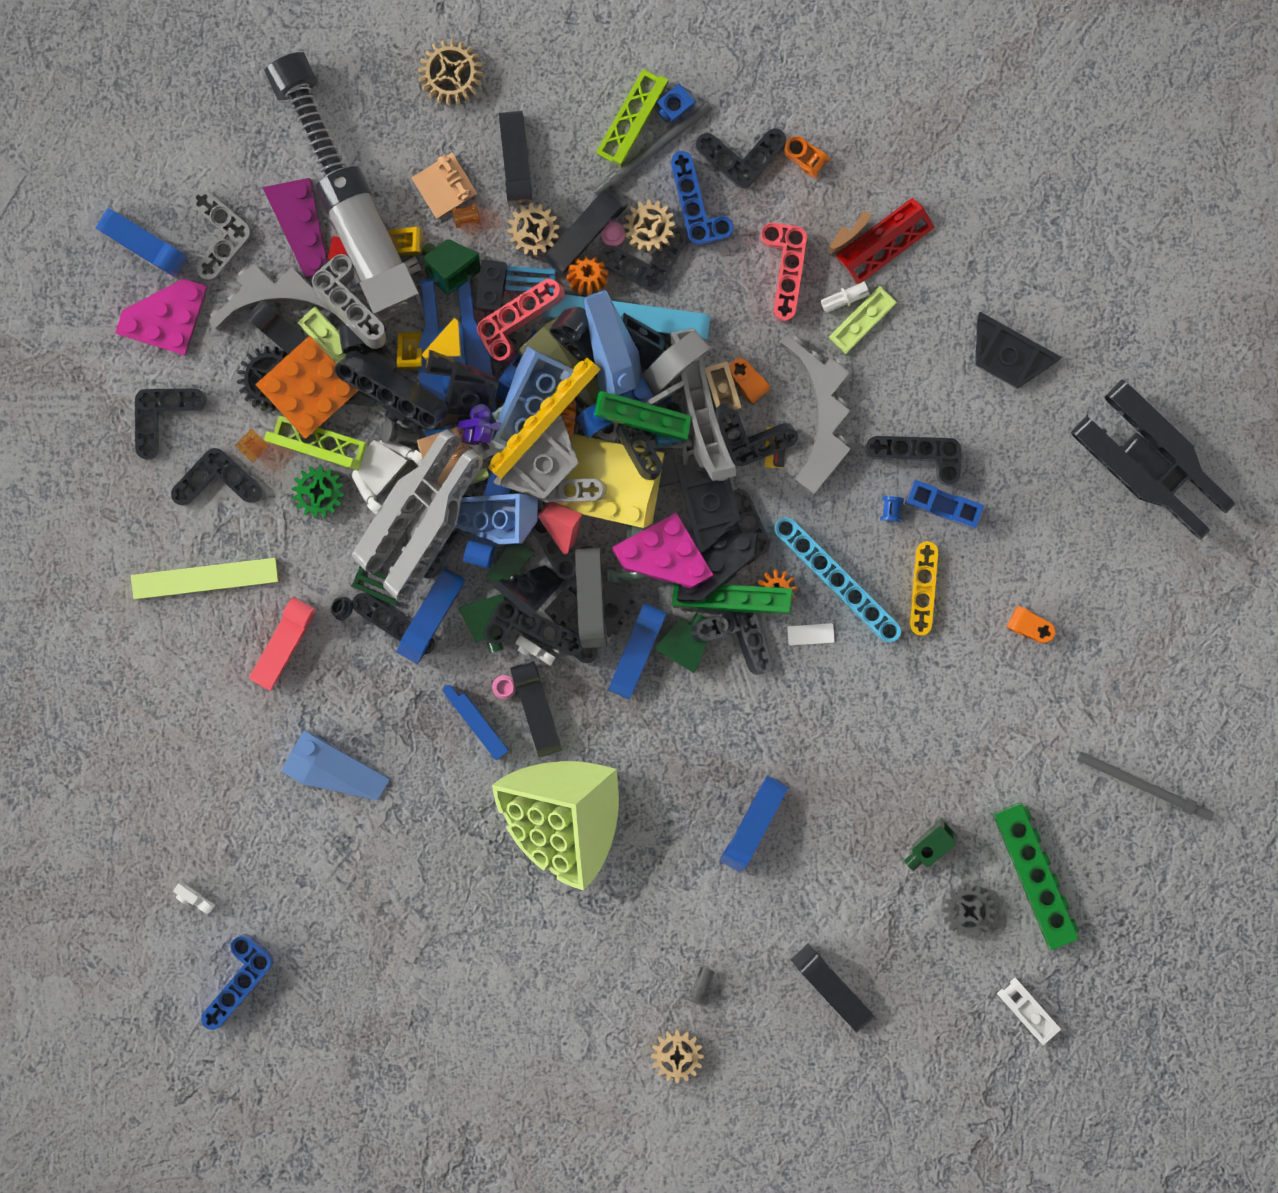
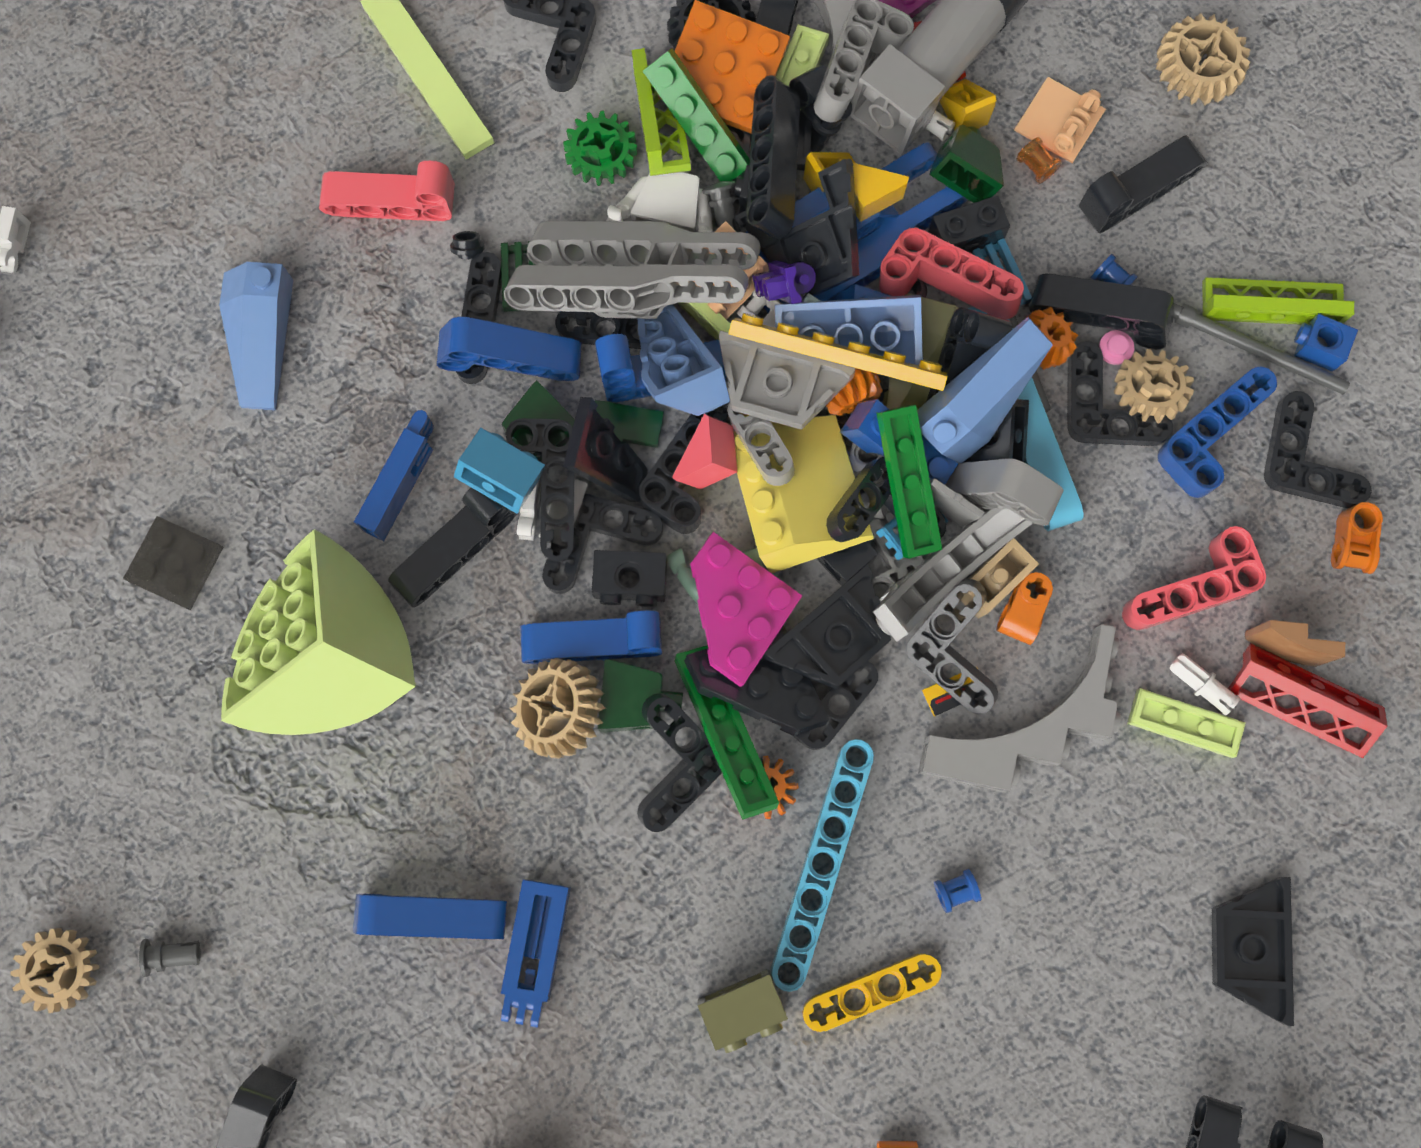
camera: 60 degrees right, 10 degrees down
(252, 445) = (617, 44): clear orange tile -> none
(335, 421) = (697, 116): none -> plate
(460, 884) = (173, 563): none -> clear smoke plate
(504, 687) = (454, 493): bright pink plate -> none
(513, 656) = (499, 470): none -> dark azure brick
(543, 223) = (1058, 232): tan gear -> none
(567, 210) = (1112, 272): none -> blue bush
(590, 598) = (625, 536): dark grey beam -> none
(666, 678) = (546, 728): none -> tan gear
(795, 768) = (536, 936): none -> blue hinge
(810, 634) = (730, 865): white sticker -> none
(897, 668) = (742, 1011): none -> olive brick
(913, 453) = (1047, 883): black beam -> none
(944, 505) = (1004, 982): blue arch -> none

